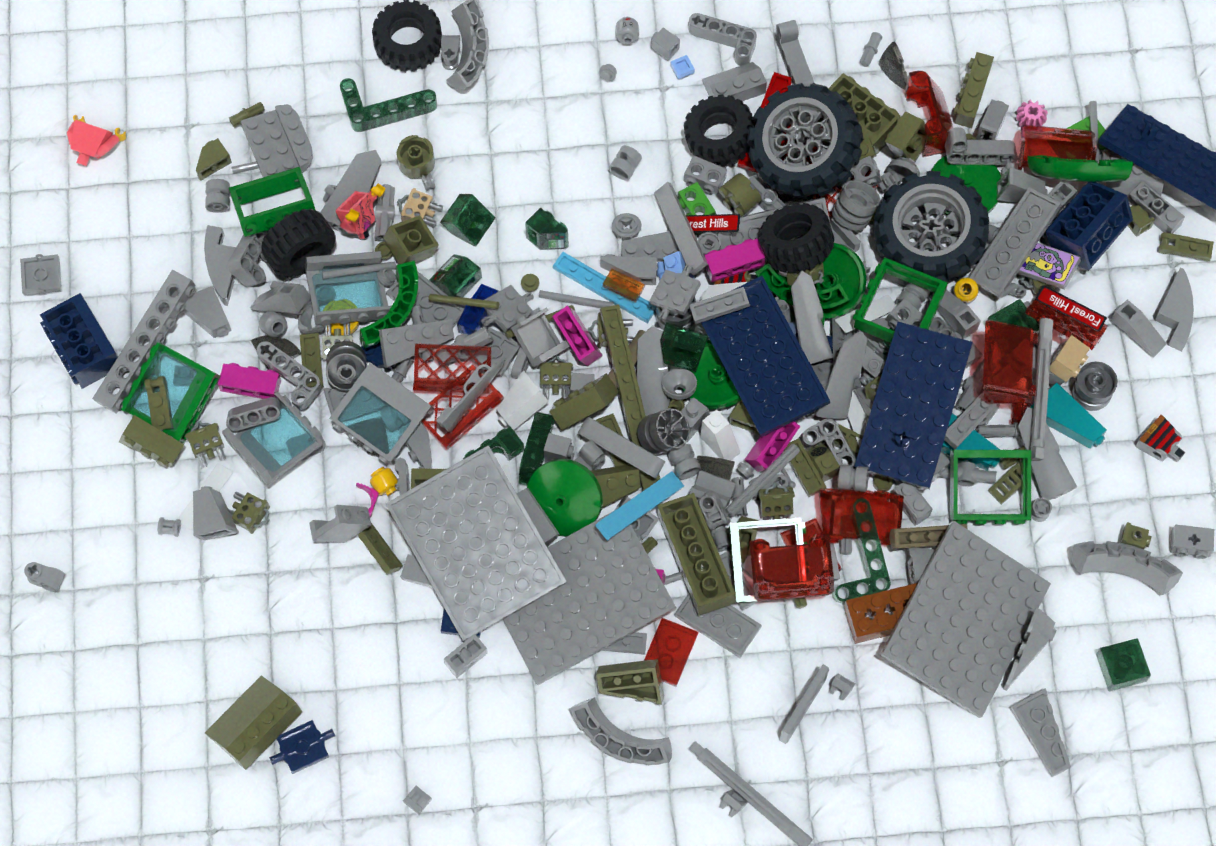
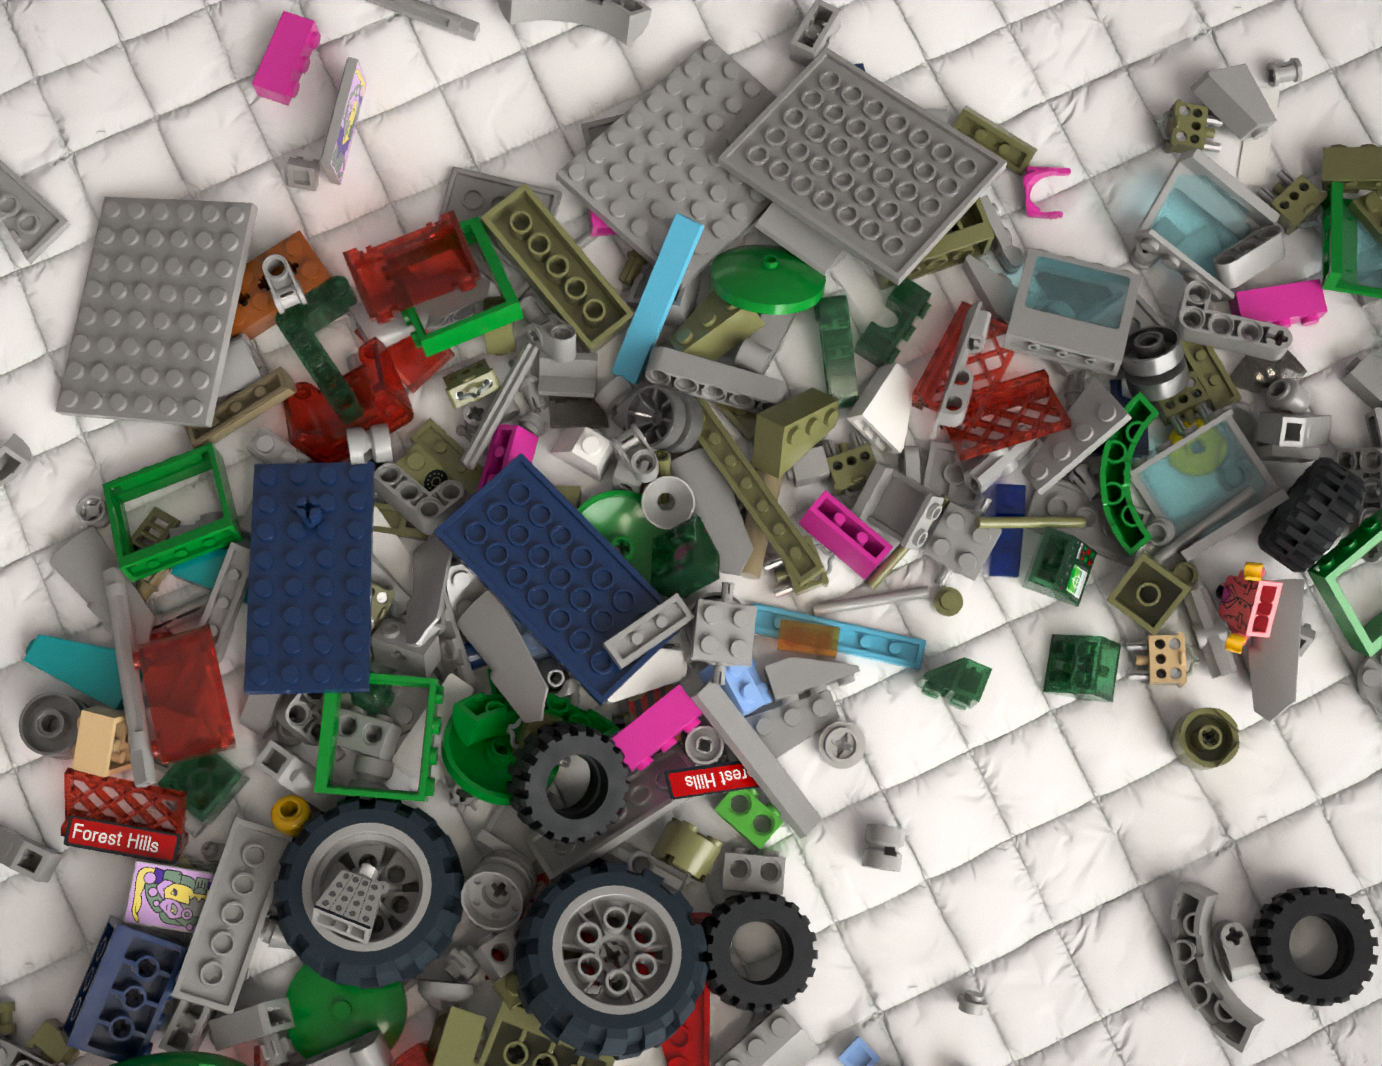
camera: 160 degrees right, 10 degrees up
(346, 524) = (1057, 133): light grey panel -> none
(383, 108) = (1290, 805): clear green beam -> none
(384, 481) = (1027, 230): yellow head -> none
(428, 181) = (1168, 709): light grey bush -> none
(558, 448) = (802, 349): light grey brick -> none
(632, 680) = (585, 77): olive wedge -> none
(672, 649) = (548, 139): clear red tile -> none
(690, 408) = (633, 449): none -> light grey piece
(829, 770) = (286, 58): none -> dark pink brick
(877, 593) = (285, 287): none -> light grey piece
(942, 210) = (350, 904): none -> light grey torso
(973, 388) = (233, 666): light grey piece -> none
(1035, 639) = (59, 312): light grey wedge -> none

